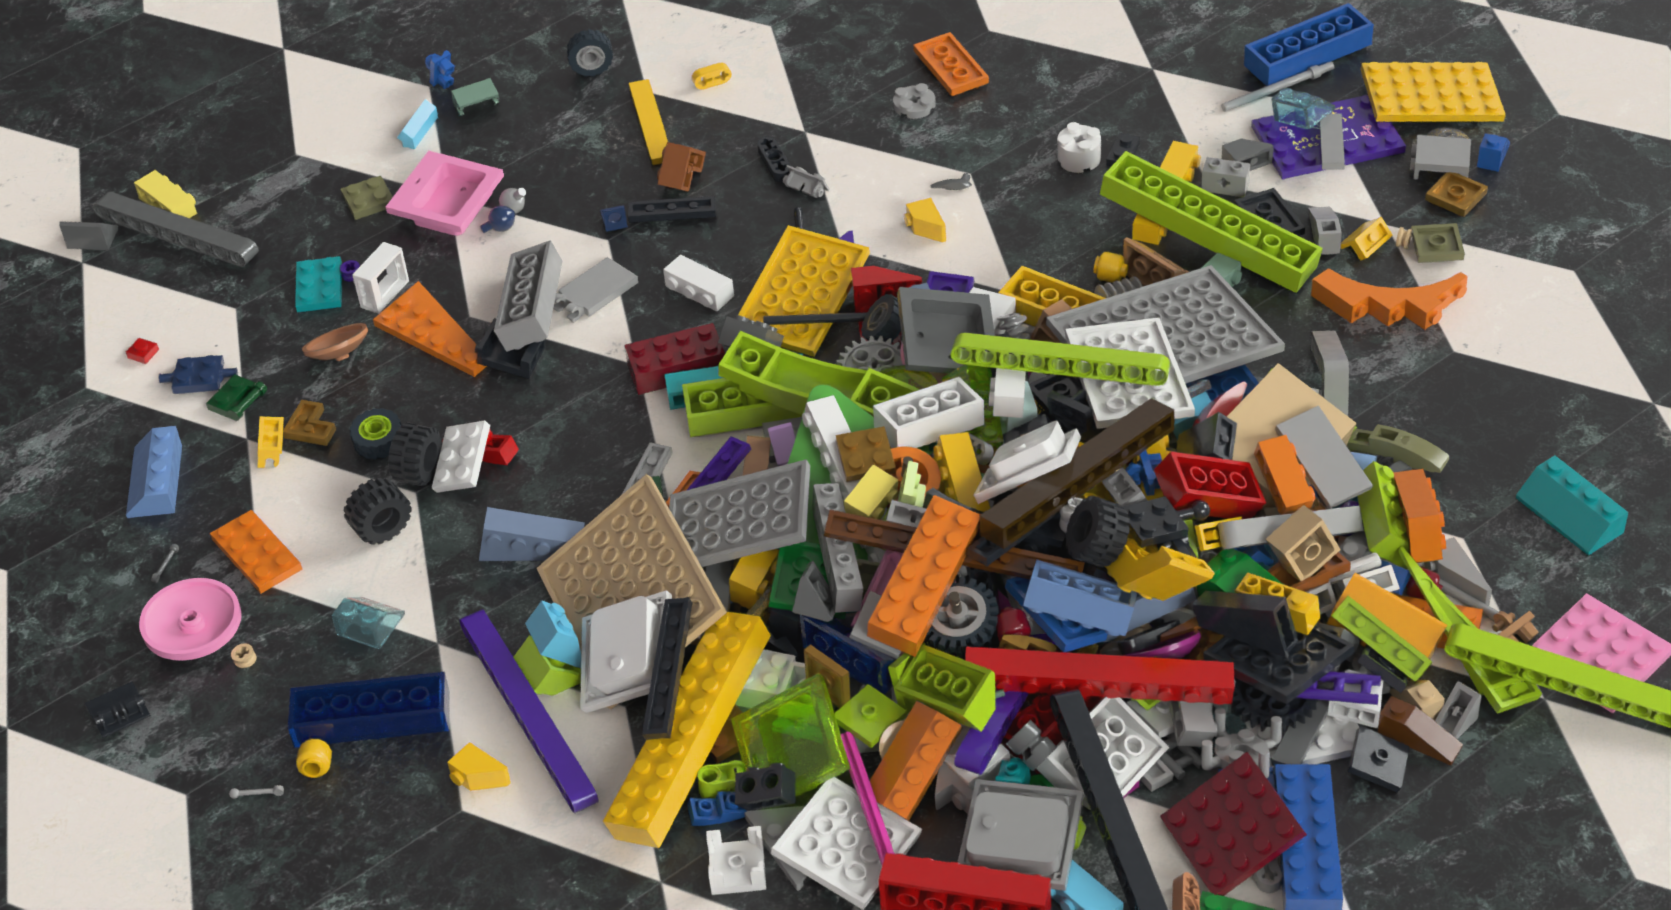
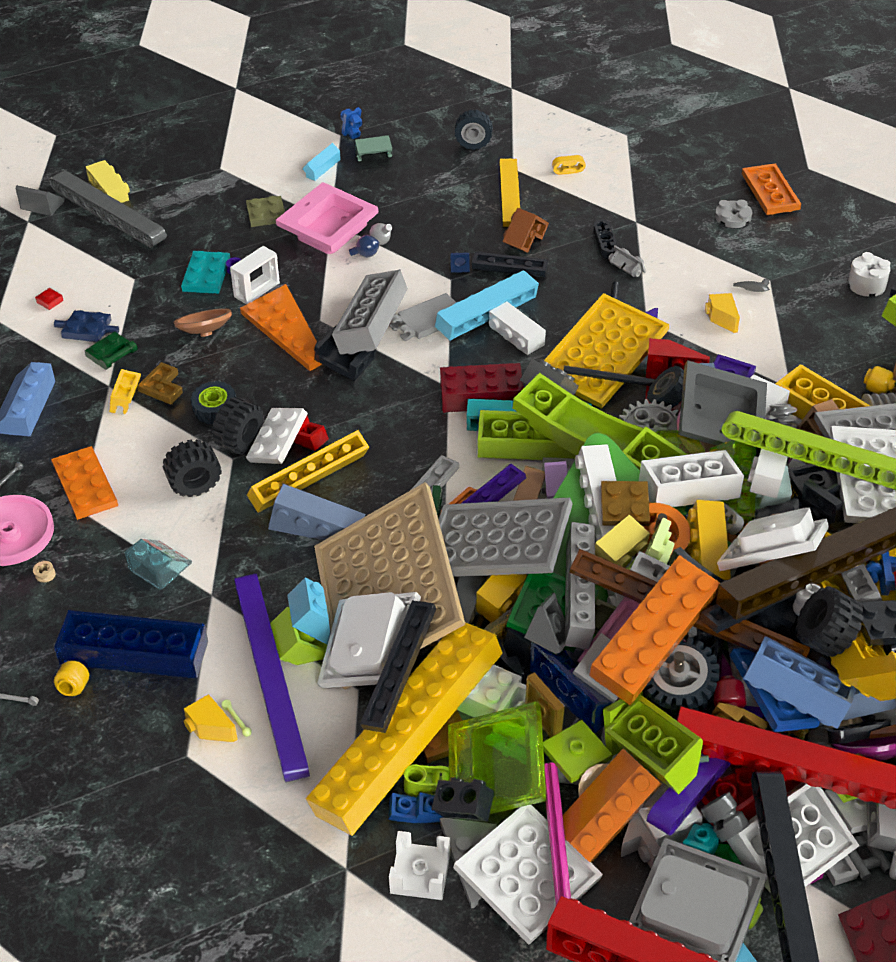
camera: 10 degrees right, 0 degrees up
(508, 487) = (309, 469): none -> yellow brick
(518, 772) = (226, 705): none -> yellowish green hinge
(647, 269) = (475, 309): none -> medium azure brick

